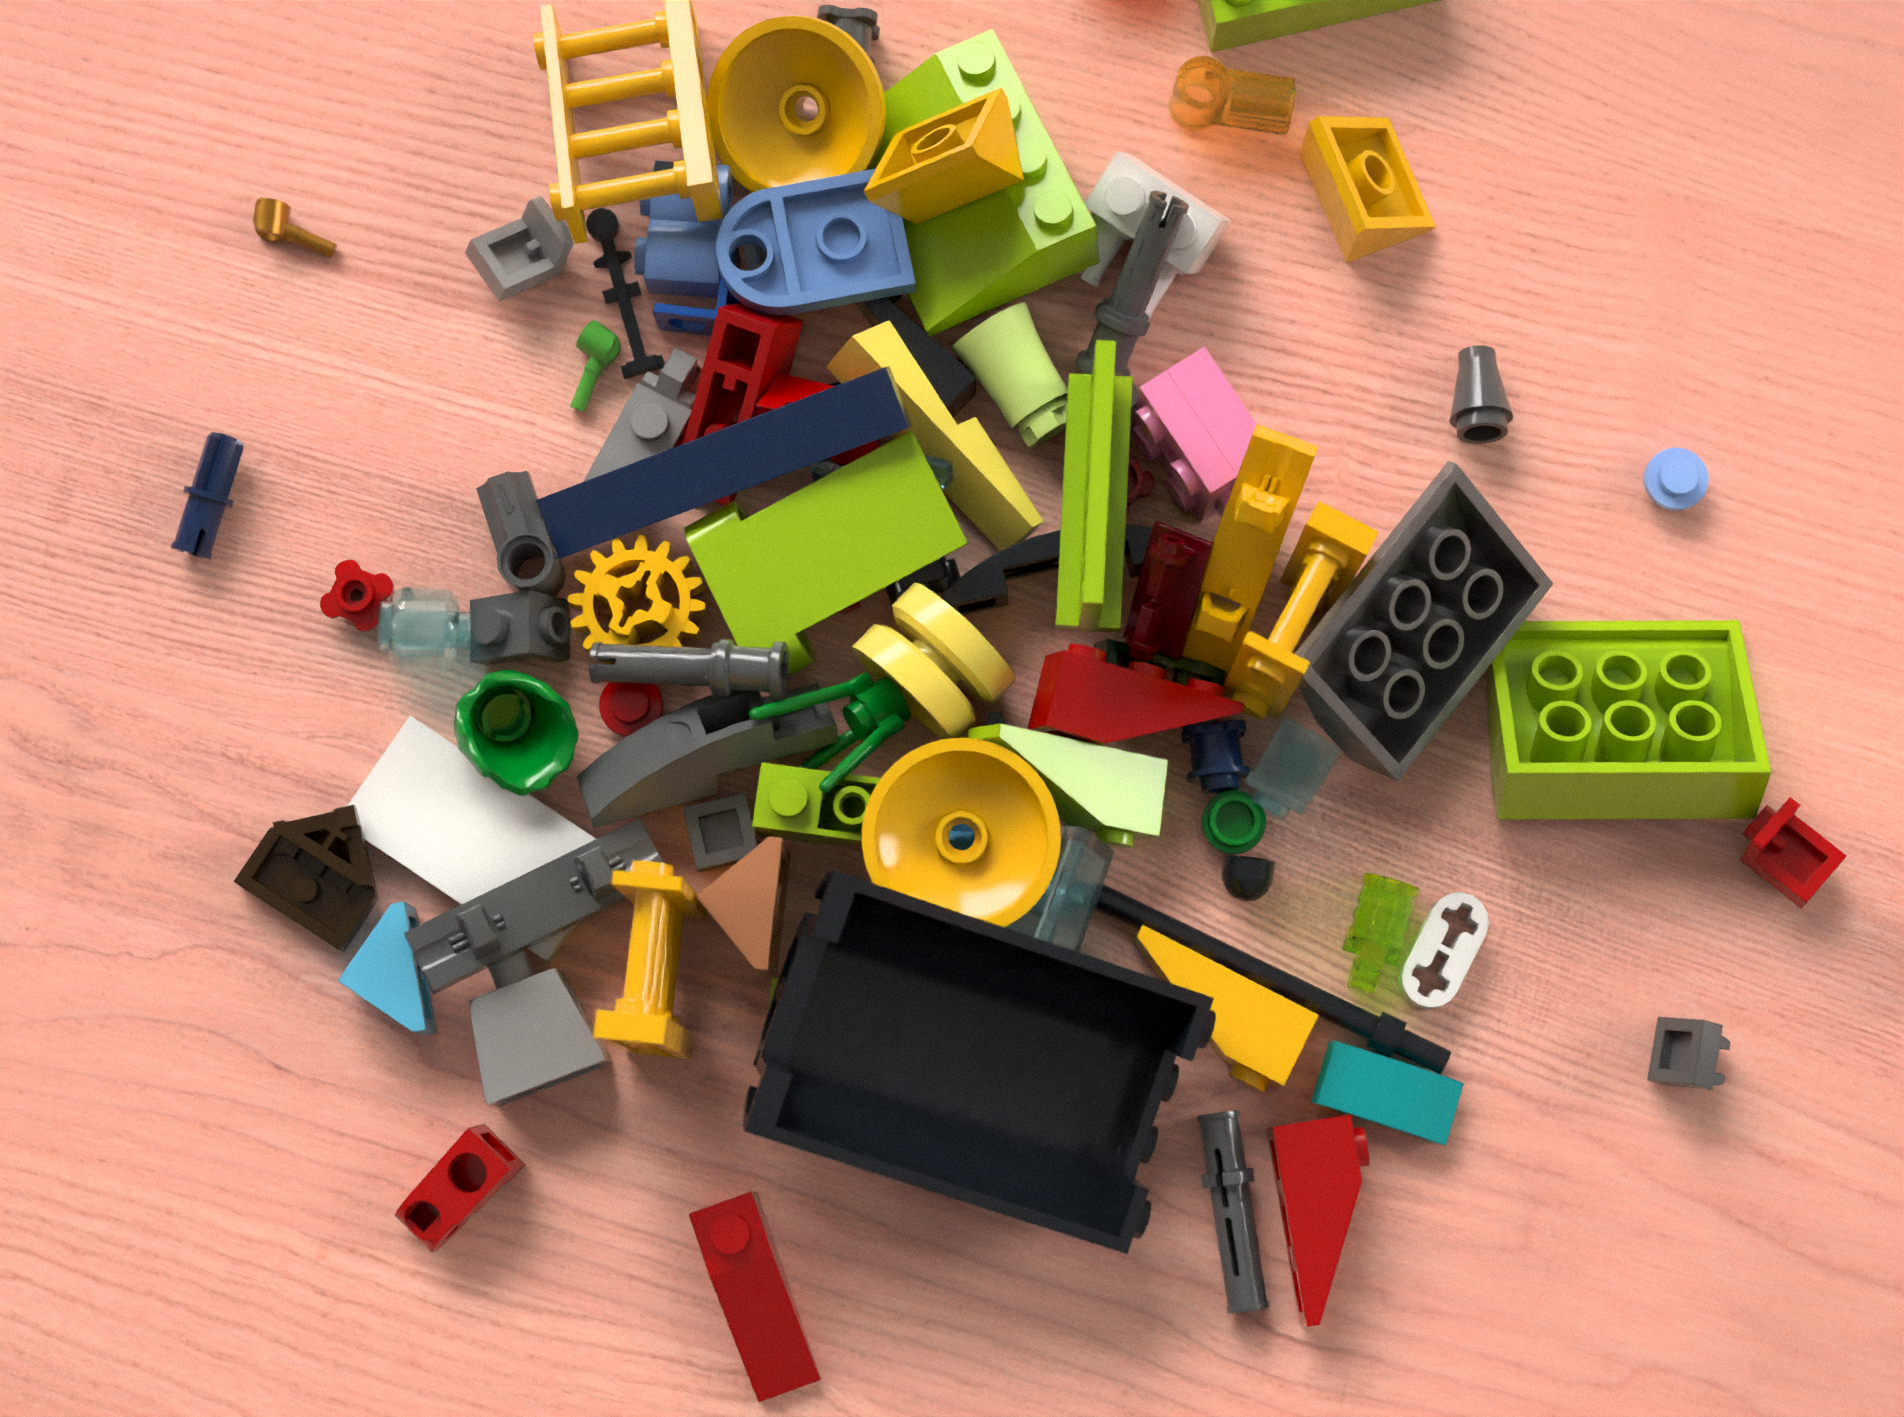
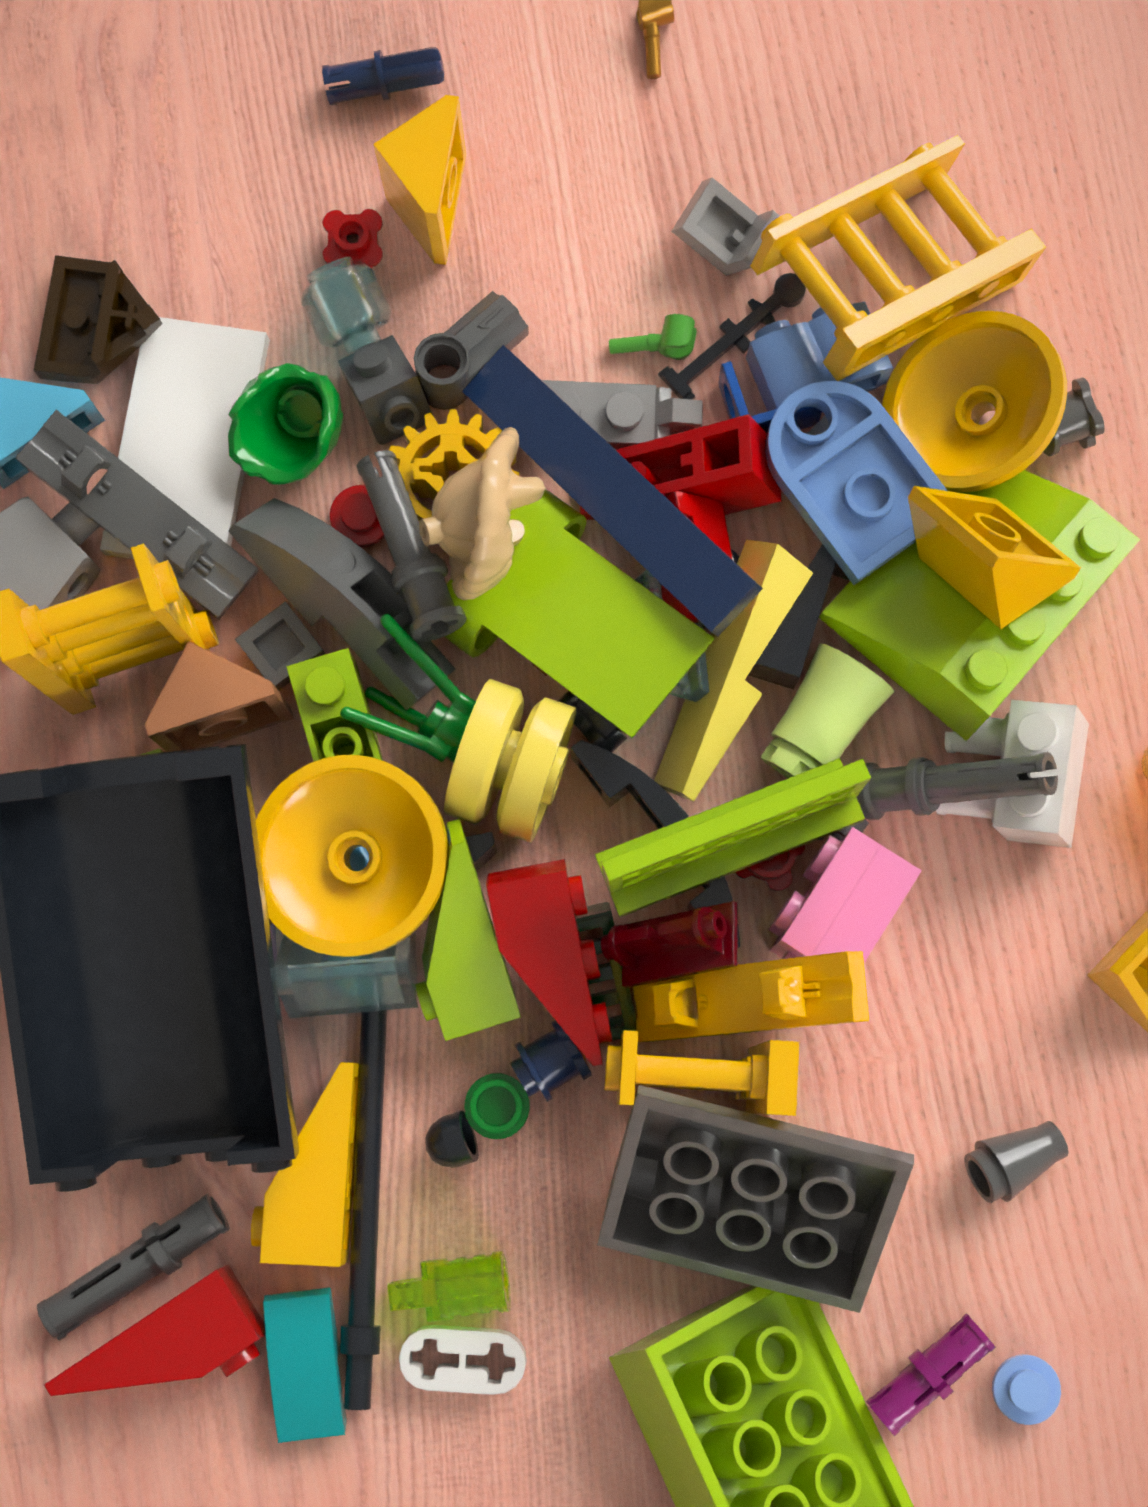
camera: 65 degrees right, 0 degrees up
(339, 500) = (423, 173): none -> yellow slope
(705, 582) = (474, 517): none -> tan piece
(1292, 769) = (567, 1138): clear light blue bracket -> none
(1629, 552) = (930, 1374): none -> magenta pin

